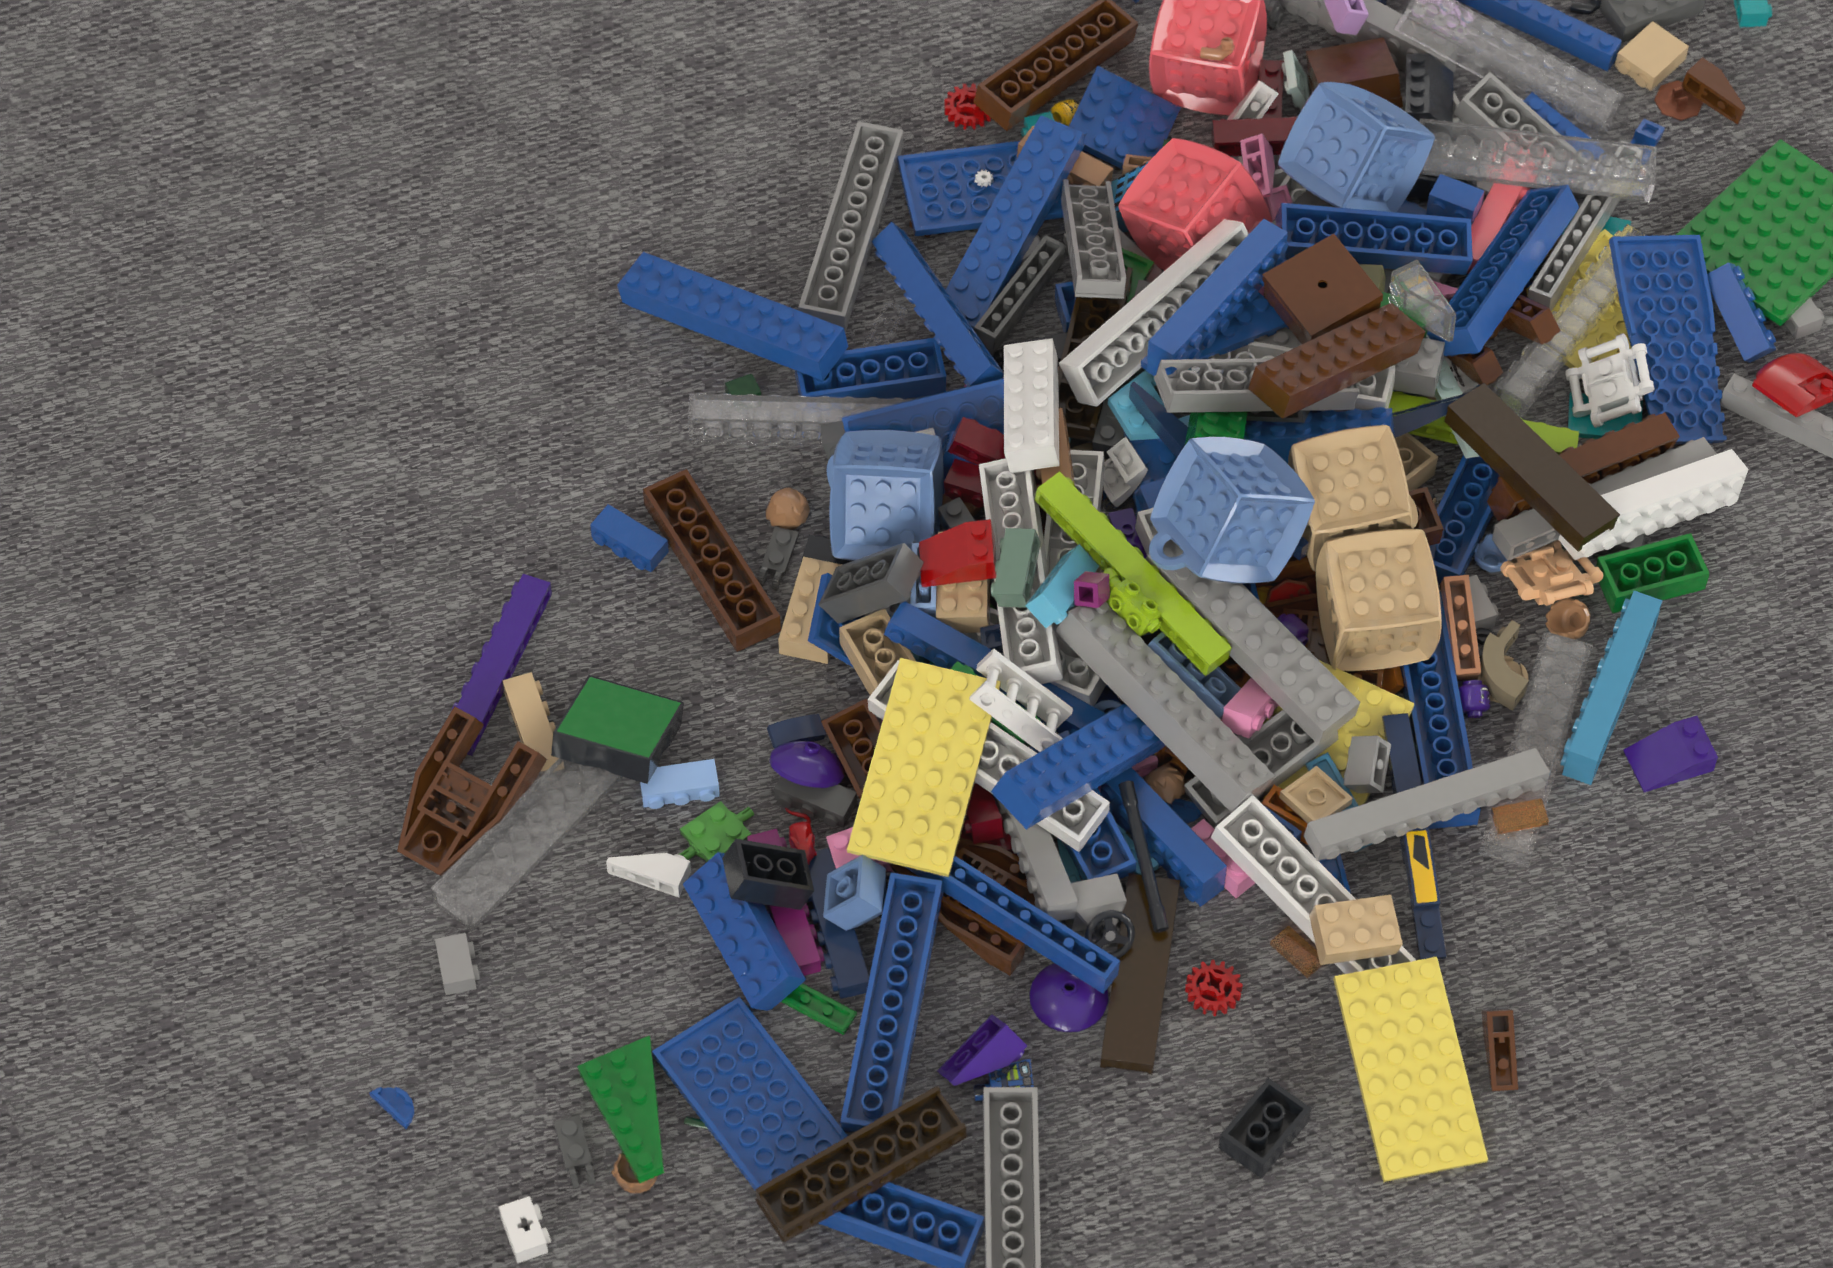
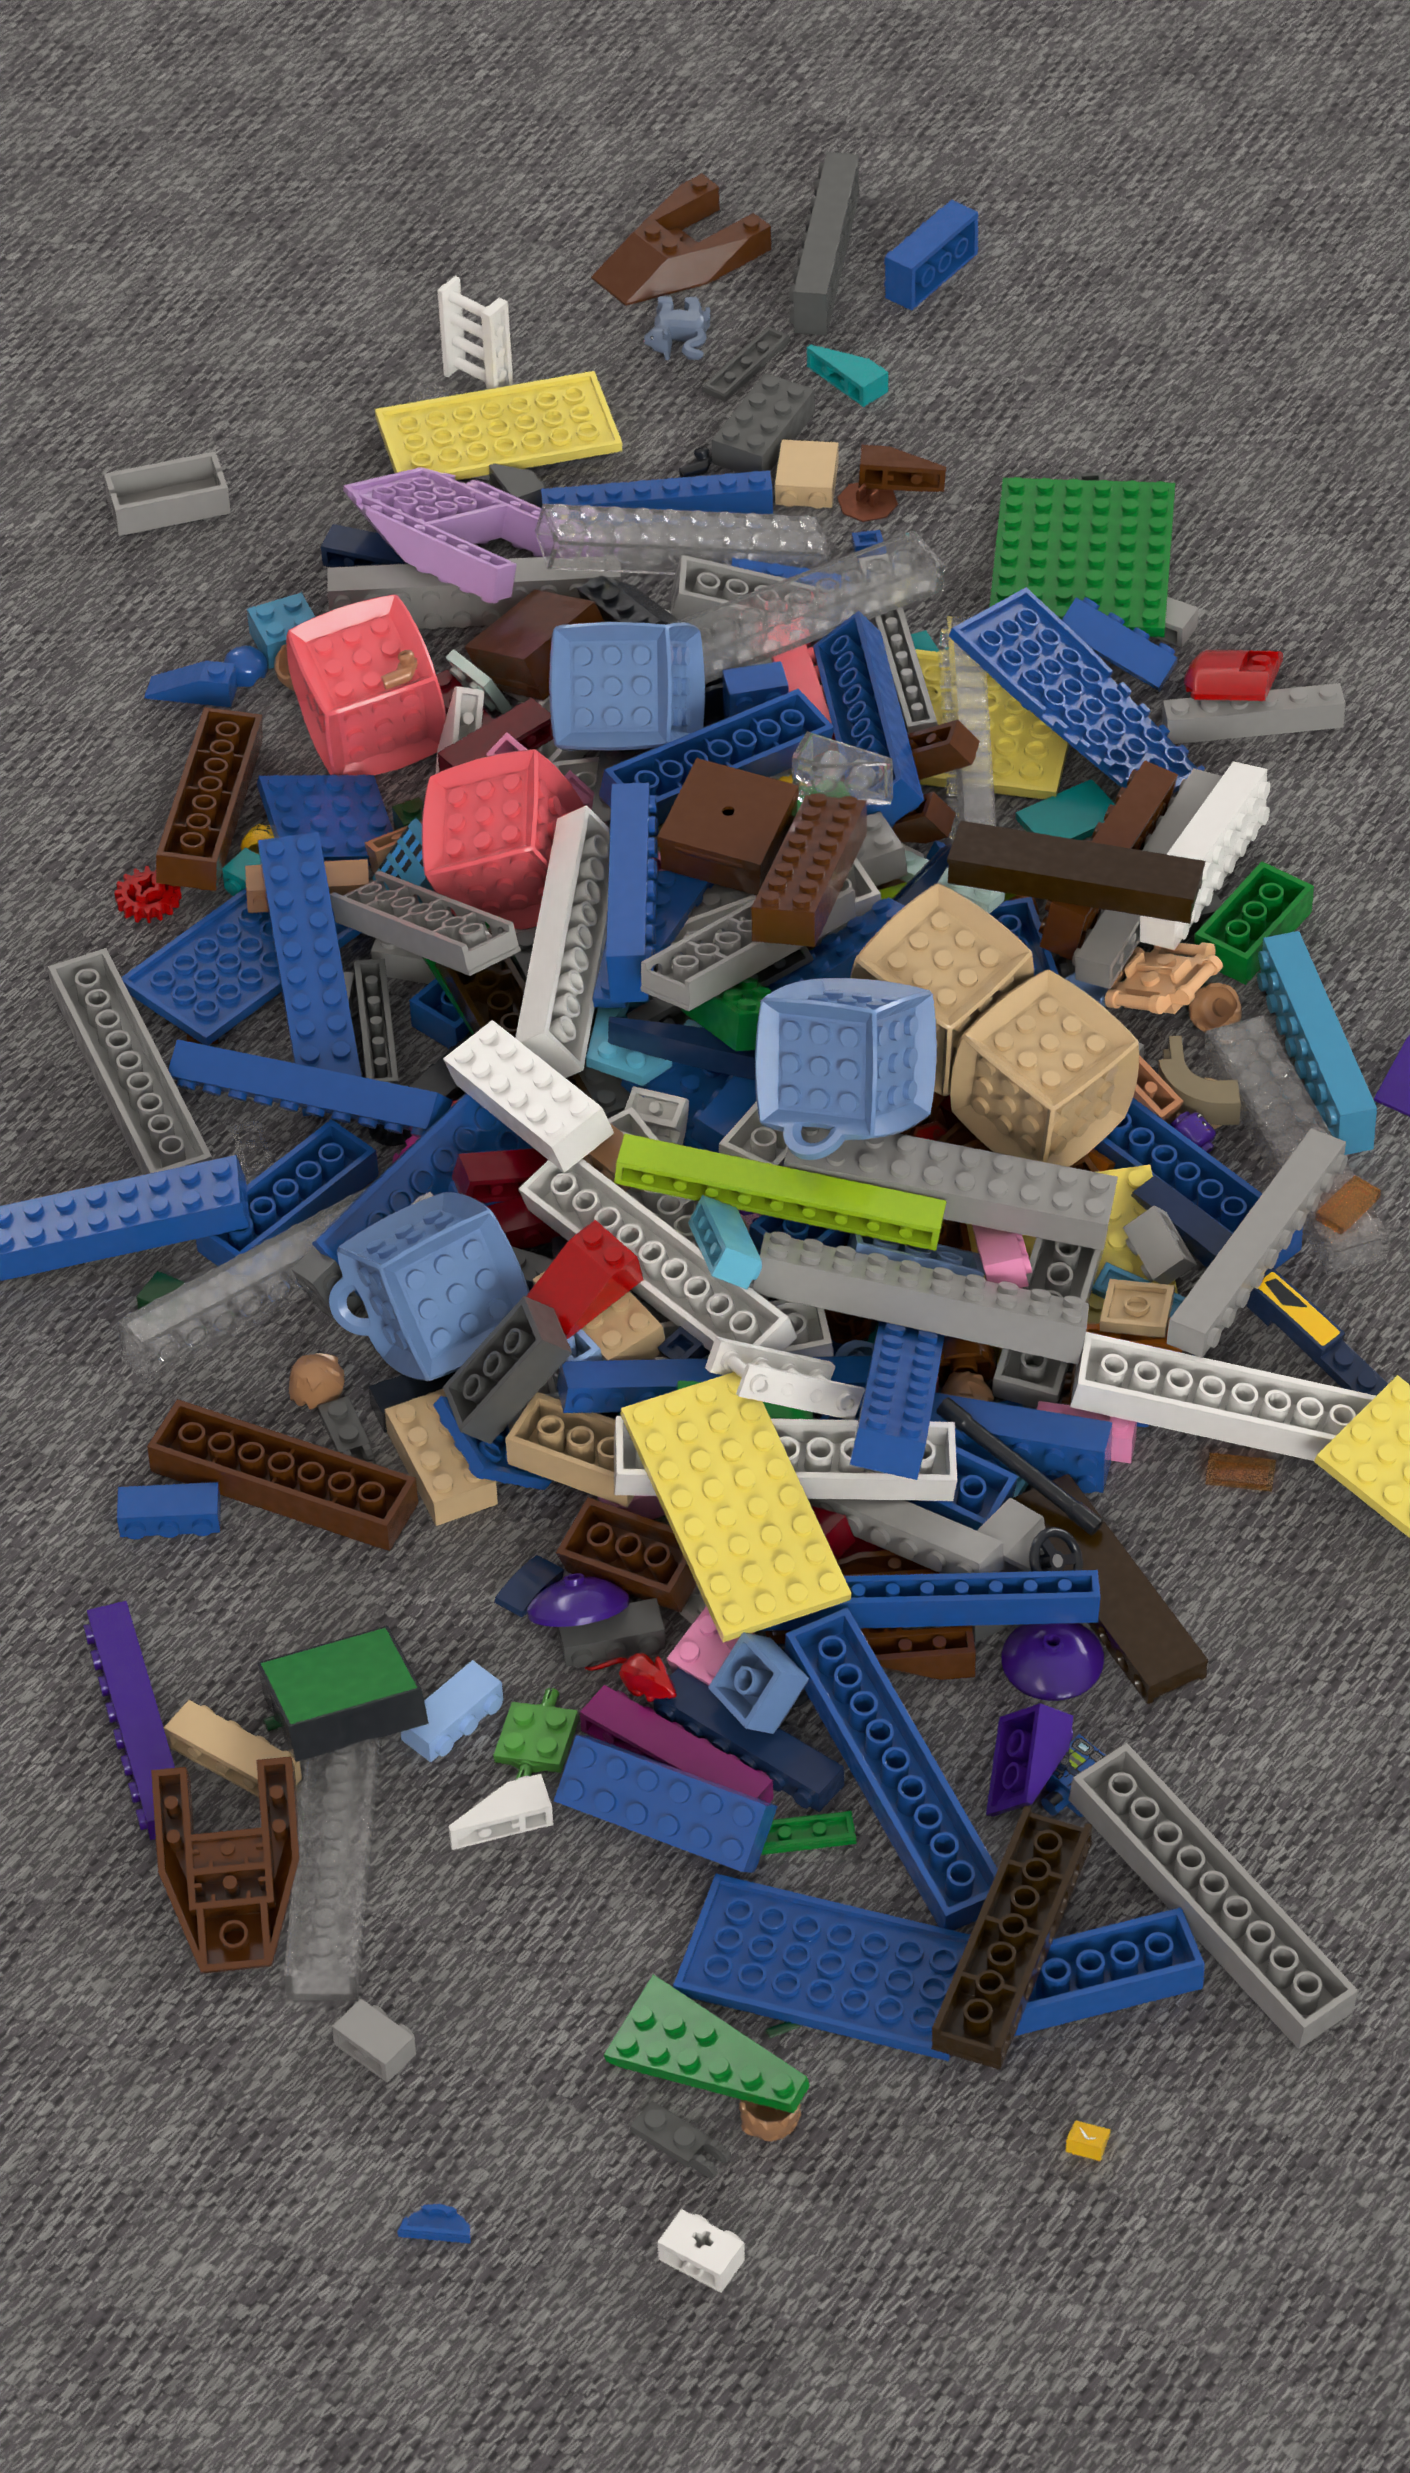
camera: 35 degrees left, 10 degrees down
(768, 874) = (652, 1721): black brick -> none
(984, 174) = (233, 948): white piece -> none
(1016, 567) = (660, 1253): sand green brick -> none
(1091, 589) = (762, 1223): magenta brick -> none
(1132, 605) = (808, 1218): lime brick -> none
(1209, 997) = (1195, 1555): red gear -> none
(1264, 1128) = (1371, 1648): black brick -> none
(1355, 929) = (1300, 1396): tan brick -> none
(1610, 382) = (1056, 771): white brick -> none

